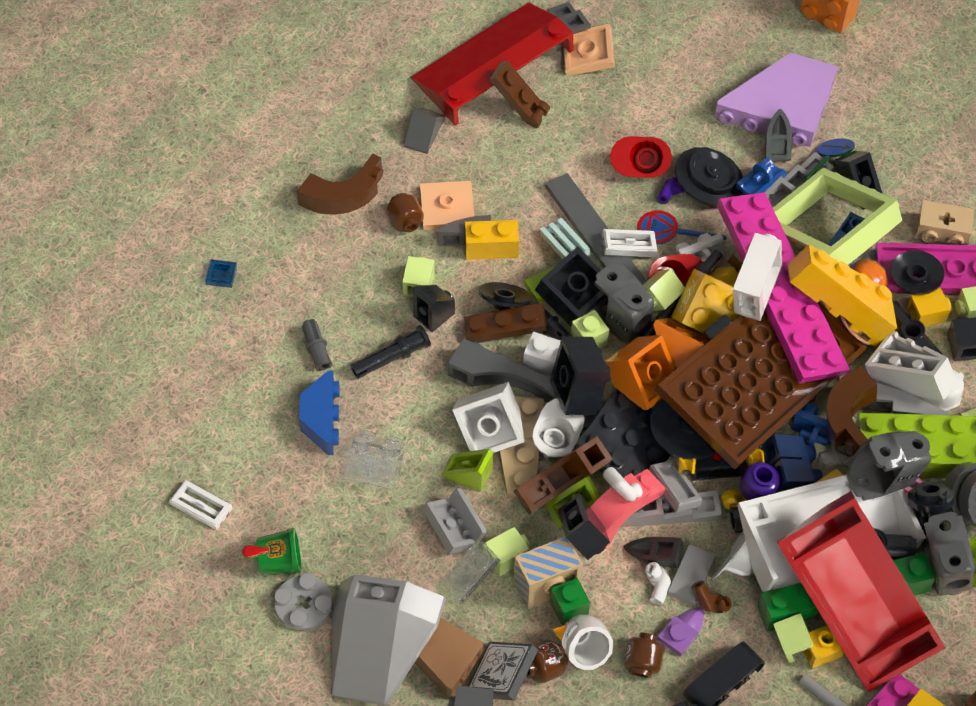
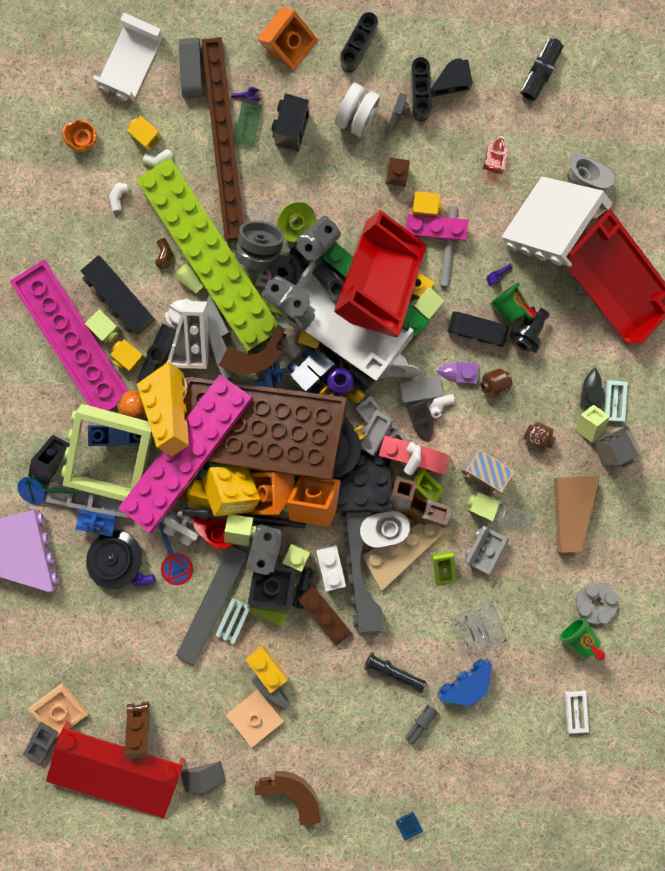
camera: 120 degrees left, 30 degrees up
(379, 635) = (595, 541): light grey wedge -> none
(405, 212) = (284, 740): reddish brown head -> none
(417, 272) = (327, 695): yellowish green brick -> none
(432, 305) = (344, 670): black slope -> none
(490, 419) = (405, 576): white slope -> none
(503, 668) = (564, 456): tile -> none
(504, 295) = (298, 635): black dish -> none
(569, 600) = (493, 446): green brick -> none
(579, 376) = (348, 536): black brick -> none
(583, 527) = (451, 466): black slope -> none
(585, 641) = (514, 421): white piece -> none
(628, 245) = (217, 591): white tile -> none
(641, 157) = (133, 613): red piece -> none
(710, 601) = (432, 366): reddish brown arm -> none
(717, 327) = (251, 473): black tile -> none
(757, 276) = (205, 465): white window -> none
(778, 137) = (52, 531): pearl dark grey plate -> none
(917, 264) = (99, 375): black dish -> none
(944, 223) = (41, 376): tan brick -> none

